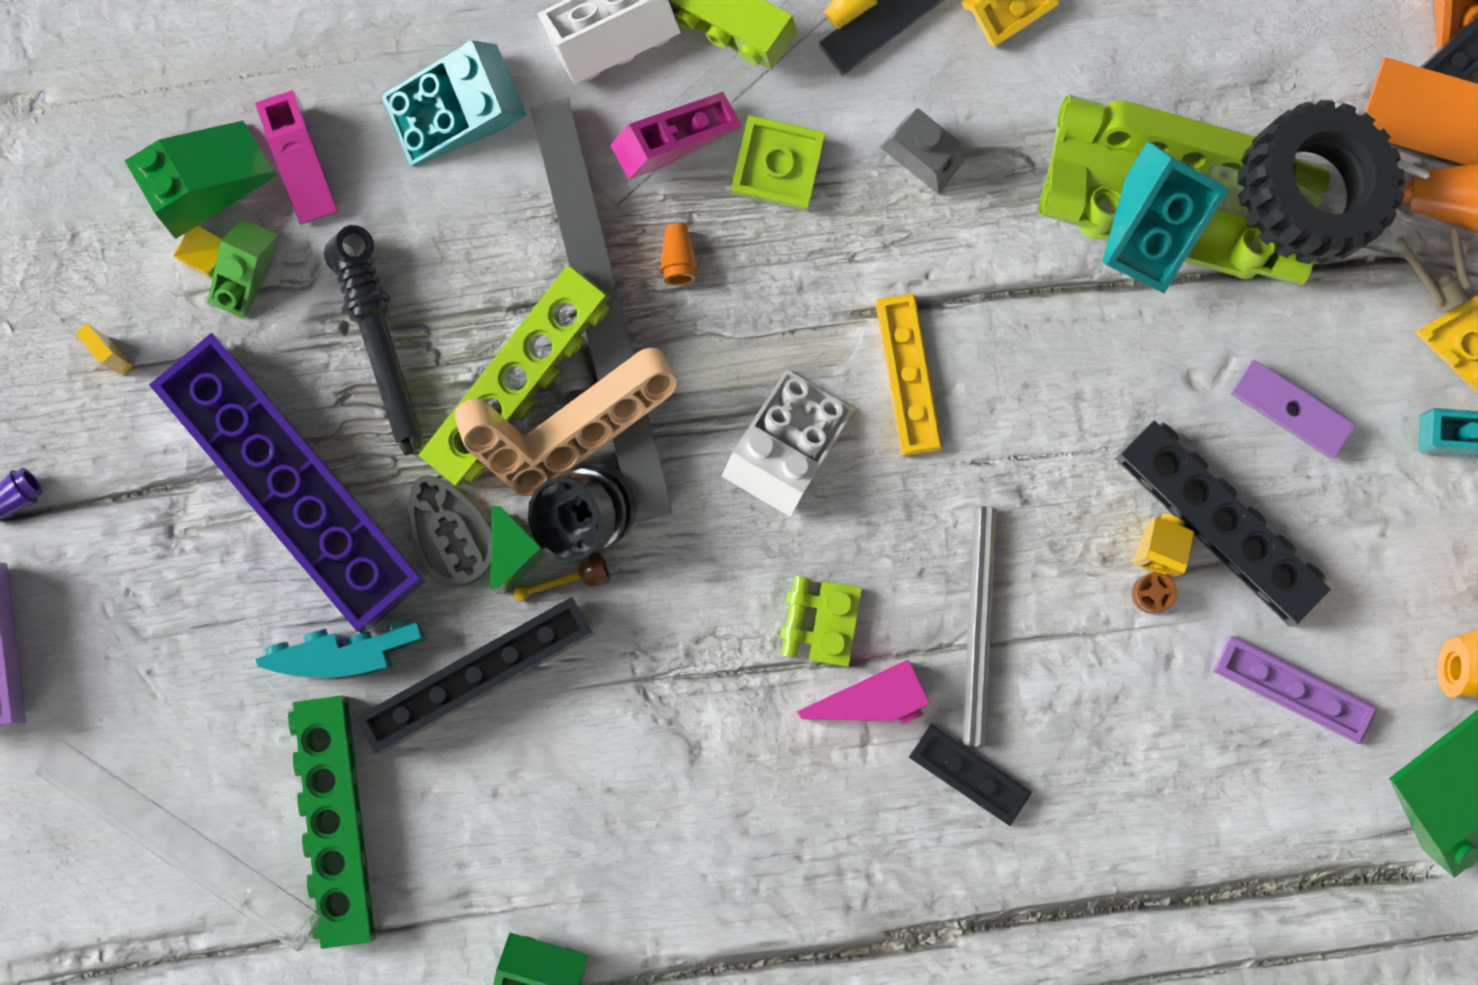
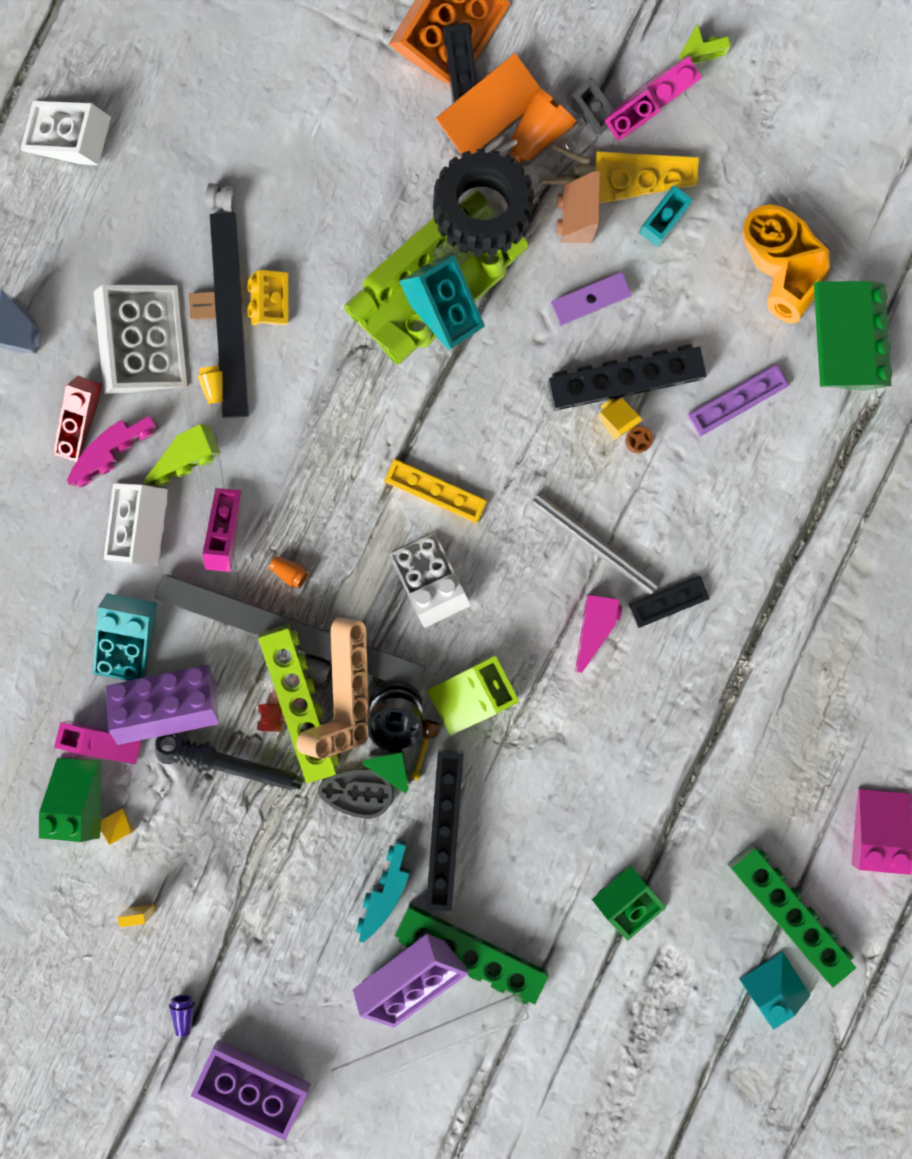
camera: 55 degrees left, 5 degrees up
(241, 267) = (139, 811): bright green slope -> none
(244, 761) = (409, 981): none -> medium lavender slope
(287, 483) = (274, 863): dark purple brick -> none
(399, 204) = (162, 704): none -> medium lavender brick
(472, 354) = (270, 718): none -> clear red wheel
(676, 596) = (473, 695): none -> lime slope
(777, 163) = (274, 484): lime plate -> none
(833, 624) = (542, 620): lime plate -> none
(925, 149) = (320, 400): dark grey torso -> none
(1396, 314) = (579, 209): none -> nougat slope

